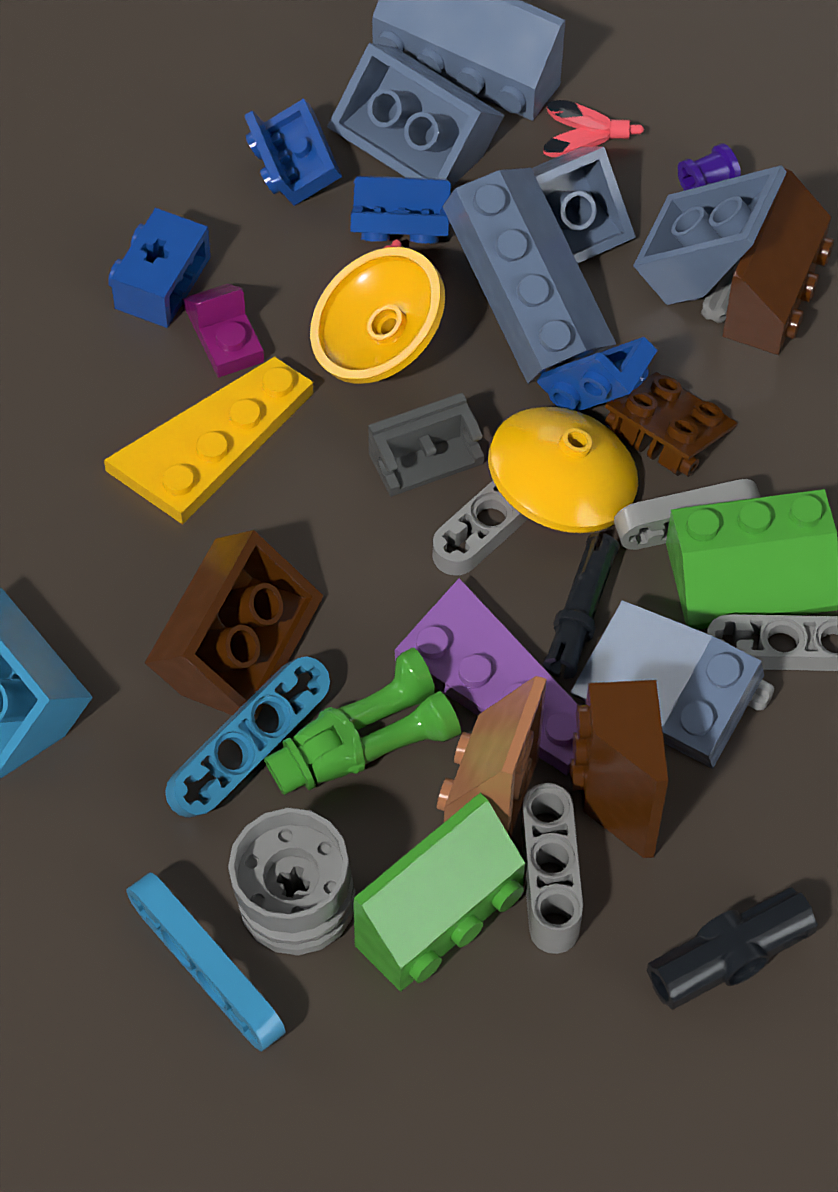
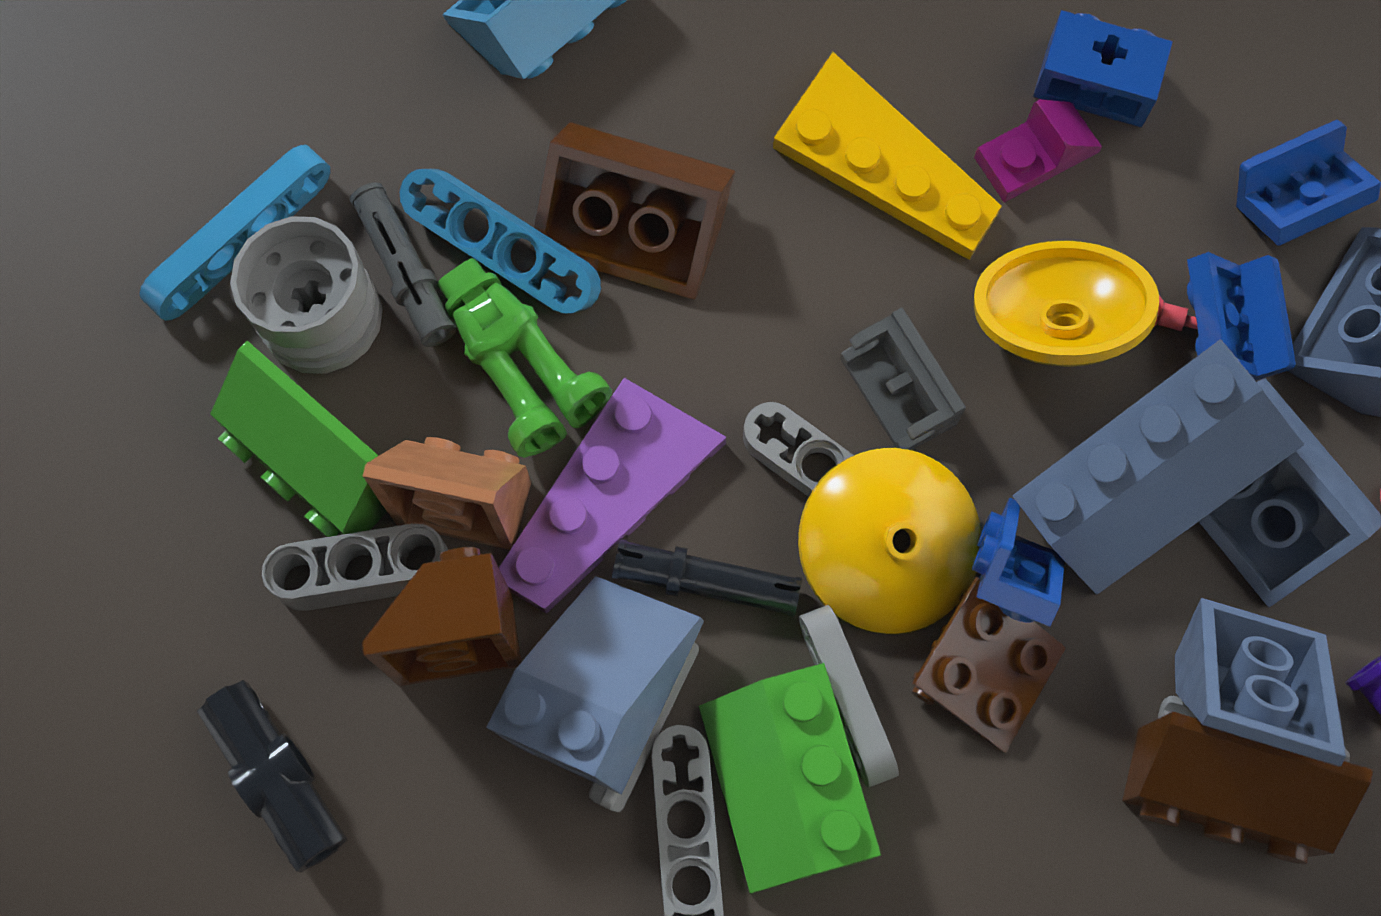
camera: 85 degrees right, 15 degrees up
(223, 831) = (429, 315): none -> dark grey pin

